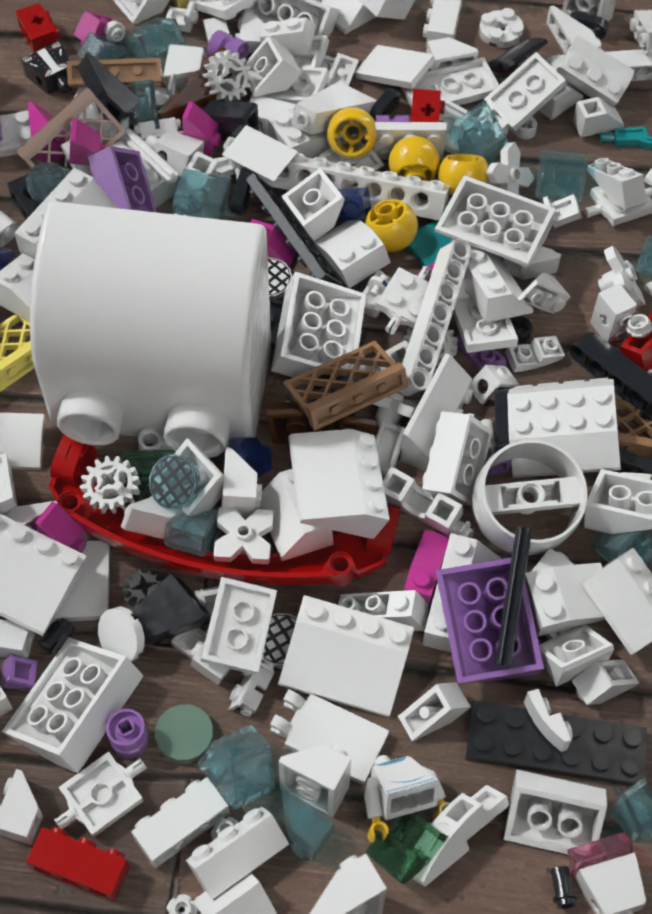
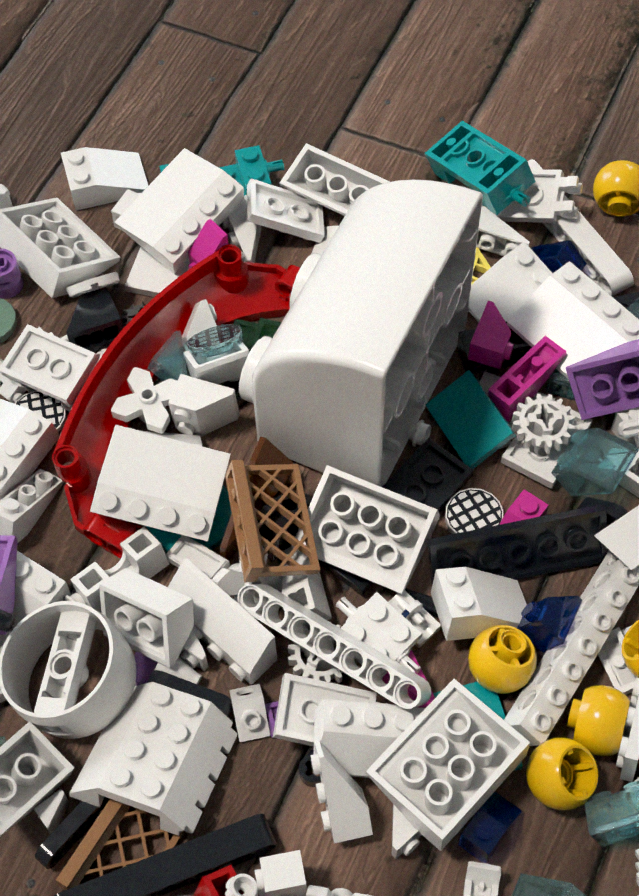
camera: 110 degrees right, 0 degrees up
(18, 673) = (101, 217): medium lavender slope -> none
(57, 635) = (126, 251): black pin -> none
(110, 484) = (246, 303): white gear -> none
(253, 453) = (236, 428): clear blue slope -> none
(315, 203) = (552, 573): white slope -> none
(426, 561) = (47, 552): dark pink slope -> none
(508, 174) = (551, 833): white plant -> none
(537, 354) = (273, 774): white slope -> none

